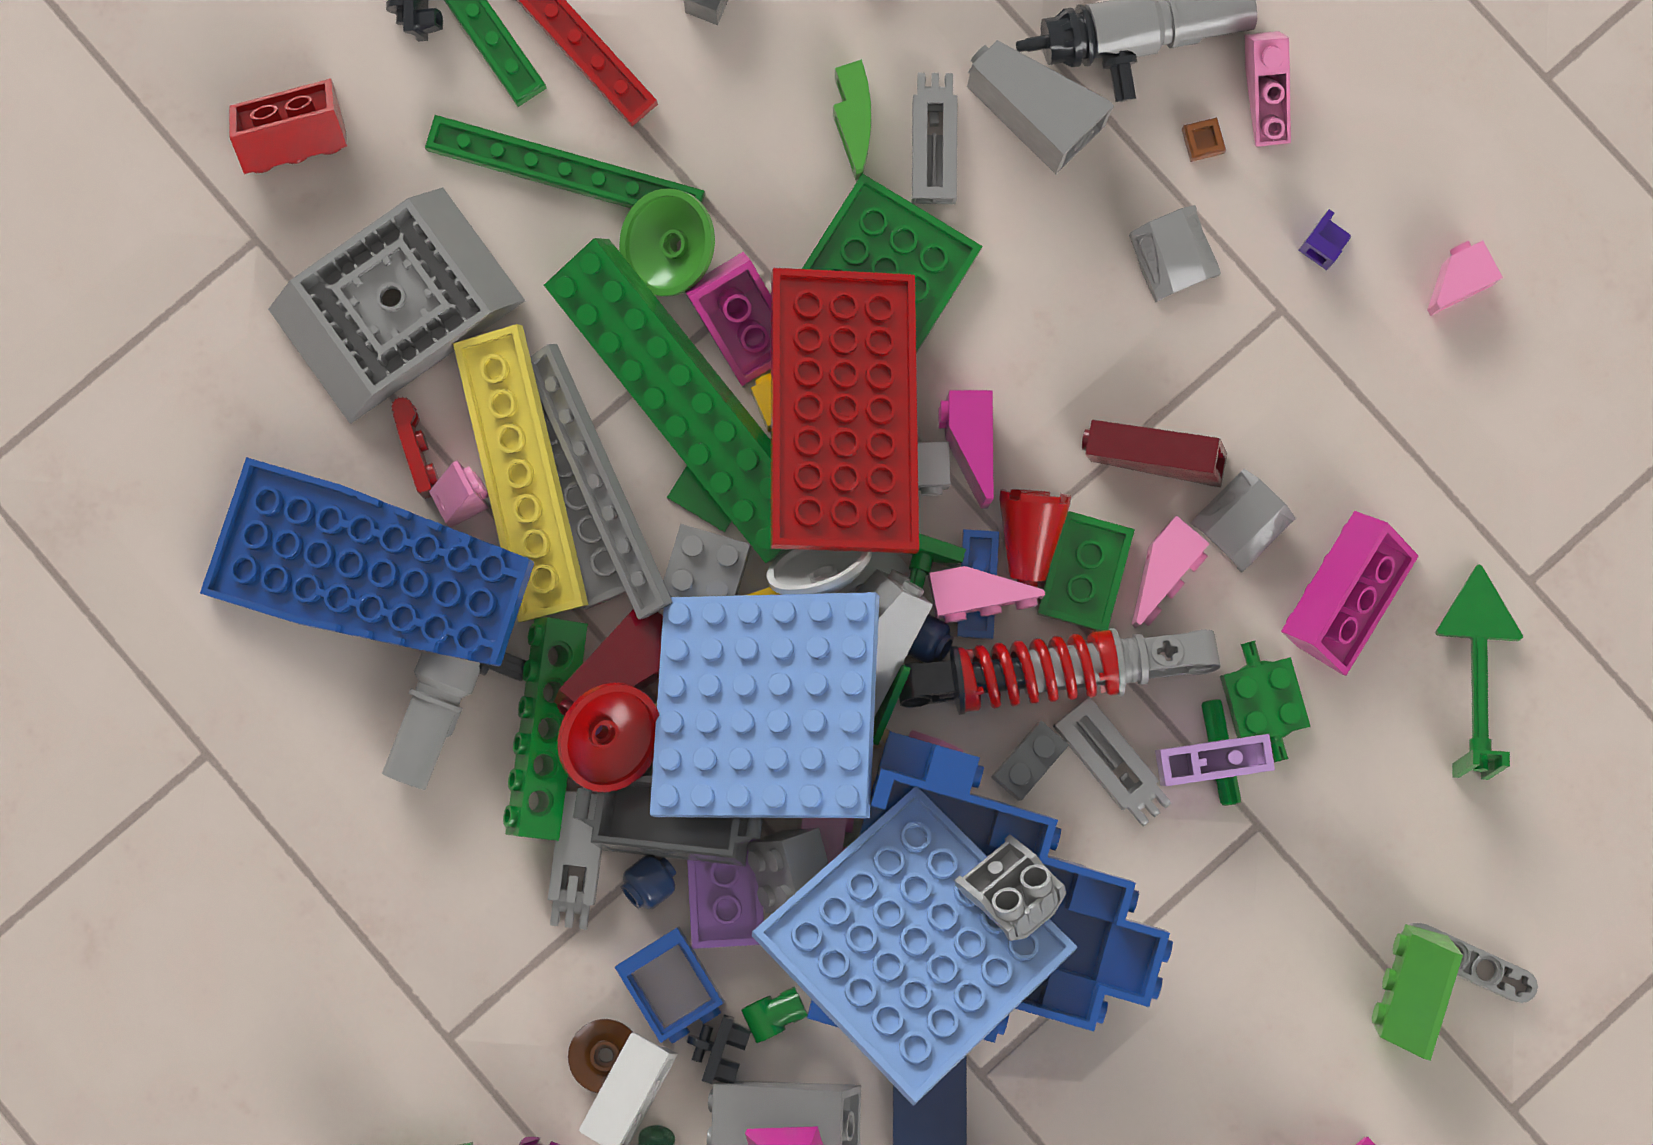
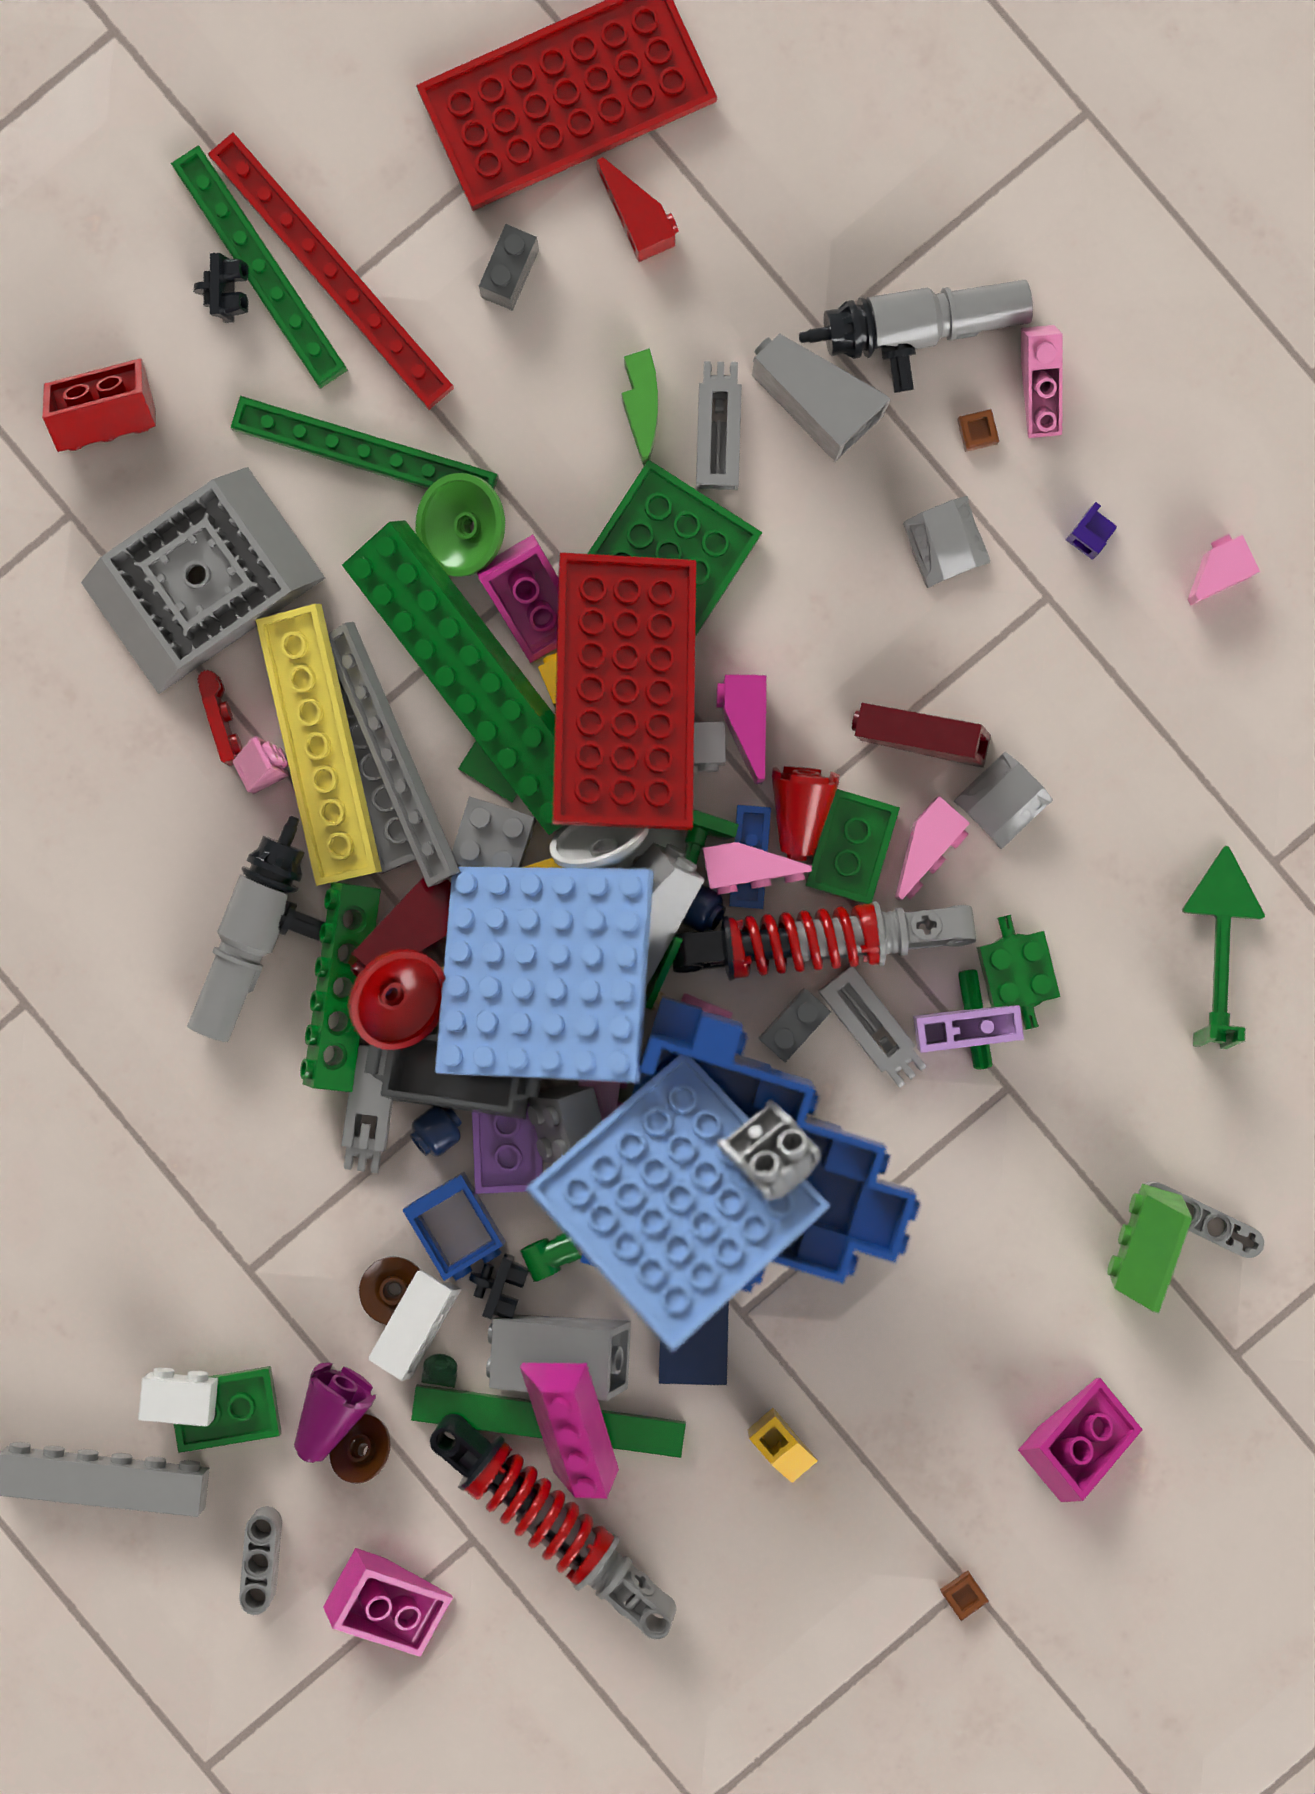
camera: 10 degrees right, 5 degrees up
(363, 567) = (169, 833): blue wing -> none
(1350, 592) = (1102, 870): dark pink slope -> none

